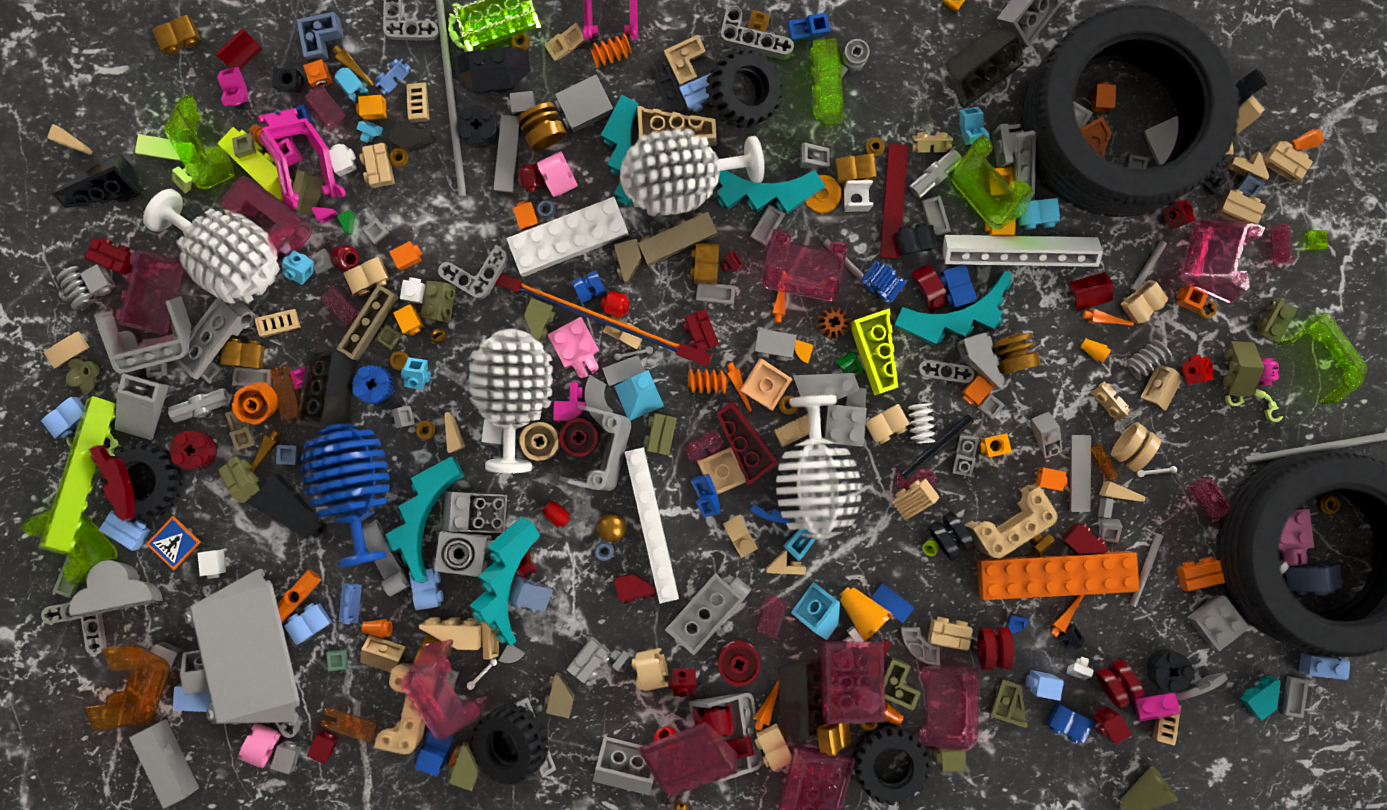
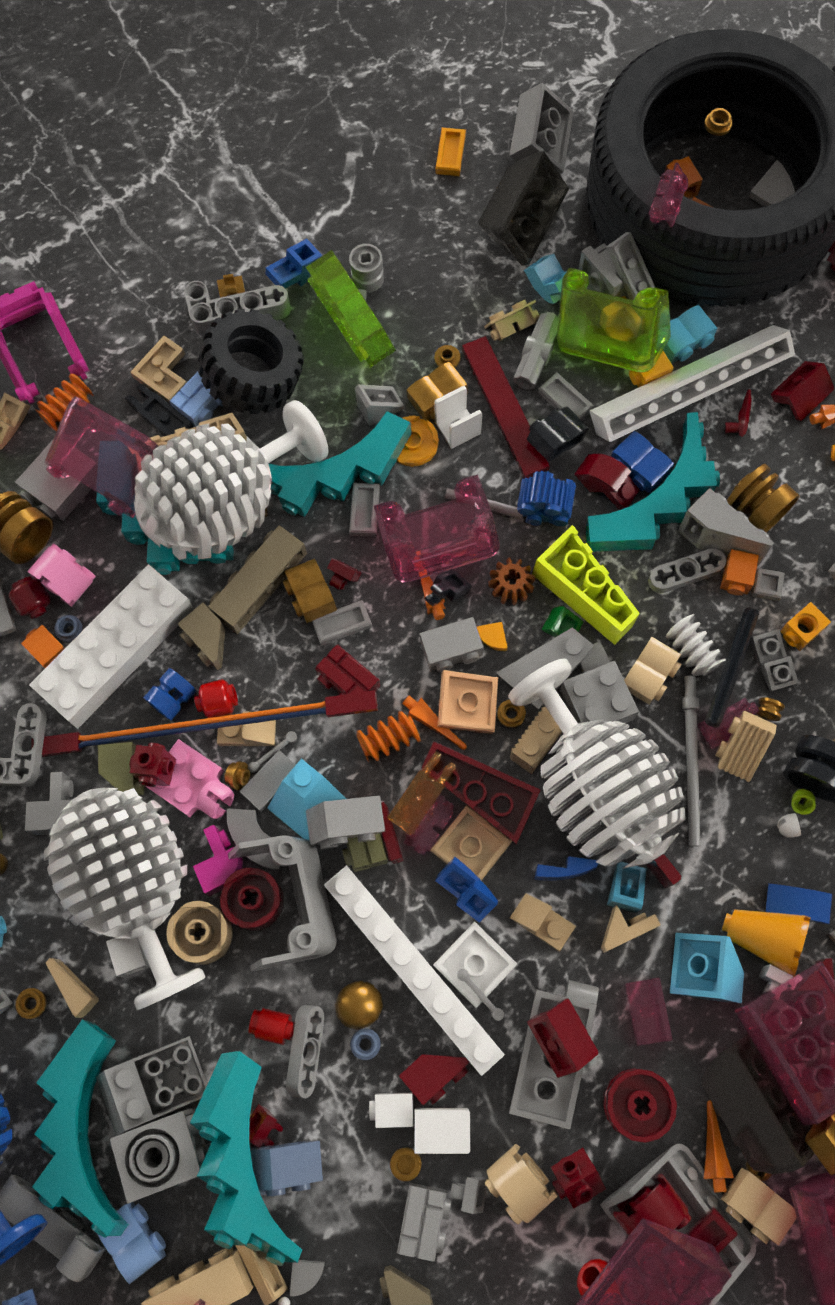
camera: 25 degrees left, 15 degrees down
(488, 325) = (43, 814): none -> light grey brick
(558, 328) = (152, 765): none -> dark red brick
(562, 546) = (301, 1070): none -> light grey beam
(594, 626) = (405, 1164): none -> pearl gold tile
(601, 594) = (392, 1110): none -> white brick
(605, 357) = (237, 775): none -> pearl gold plate
(617, 111) = (99, 454): none -> clear pink windscreen
(623, 619) = (442, 1131): none -> white piece
(652, 421) = (337, 820): none -> light grey brick
(677, 439) = (390, 838): none -> dark red tile
(686, 573) = (497, 1013): none -> light grey hinge
(689, 539) = (480, 957): none -> white tile
(706, 430) = (420, 796): none -> clear orange hinge
(715, 607) = (563, 1038): none -> dark red panel
(793, 305) = (449, 585): none -> black plate
(825, 548) = (664, 871): none -> dark red tile
(898, 455) = (690, 705): none -> light grey bar
(913, 557) = (789, 826): none -> white hinge
(944, 484) = (770, 709): none -> pearl gold bush
(1041, 290) = (743, 417): none -> dark red bar
(1074, 125) = (672, 188): none -> clear pink hinge
(1139, 90) = (718, 122): none -> pearl gold plate

